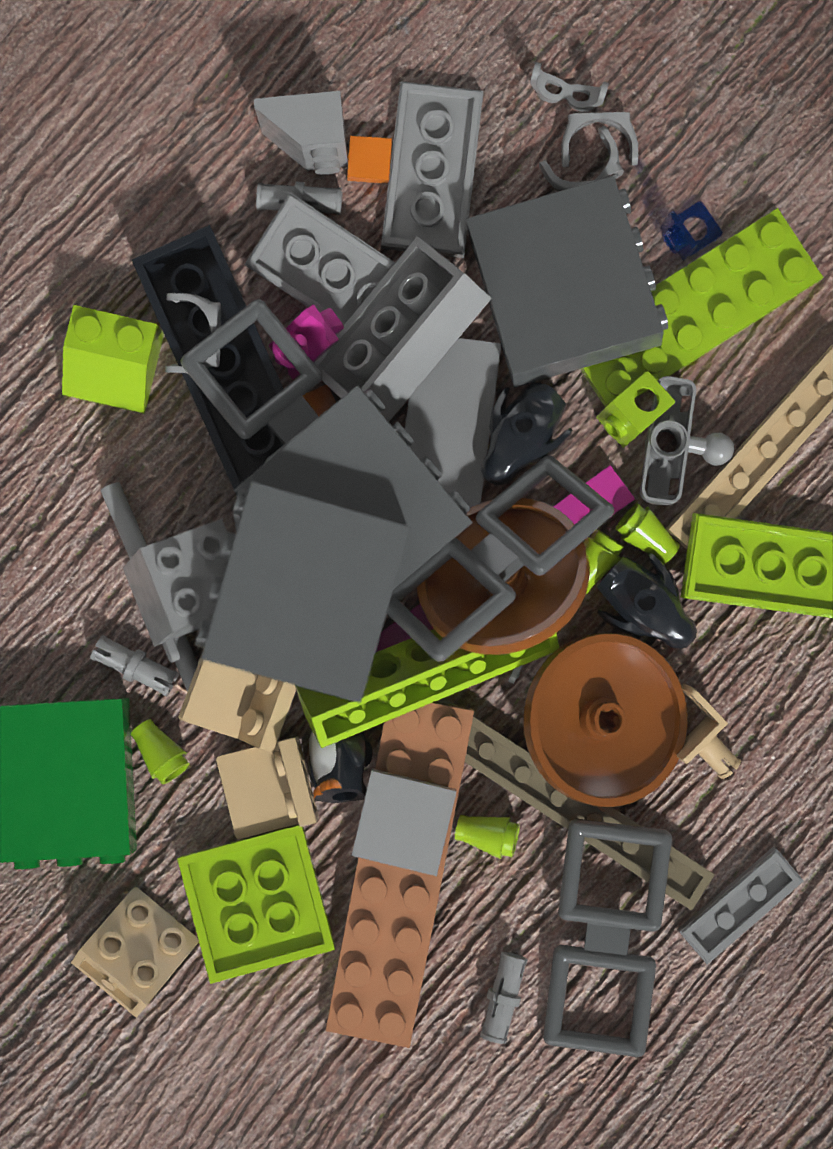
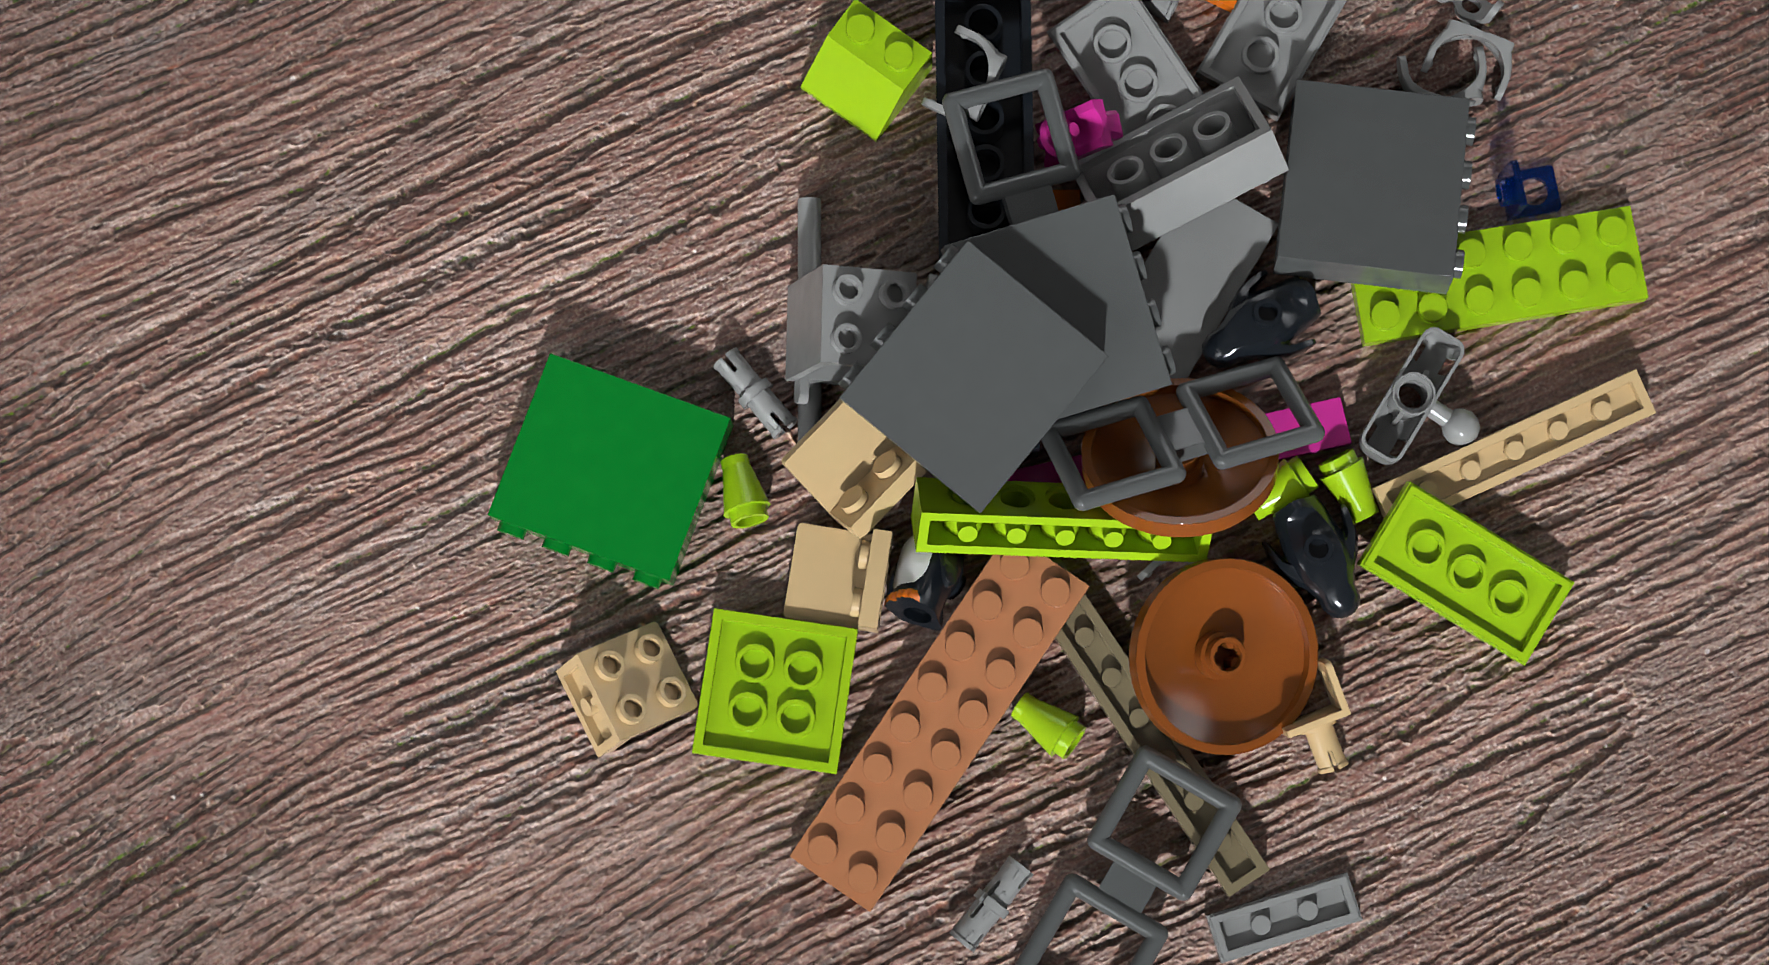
camera: 30 degrees right, 5 degrees down
(404, 822) = (967, 668): light grey tile -> none
(625, 419) = (1376, 355): lime bracket -> none

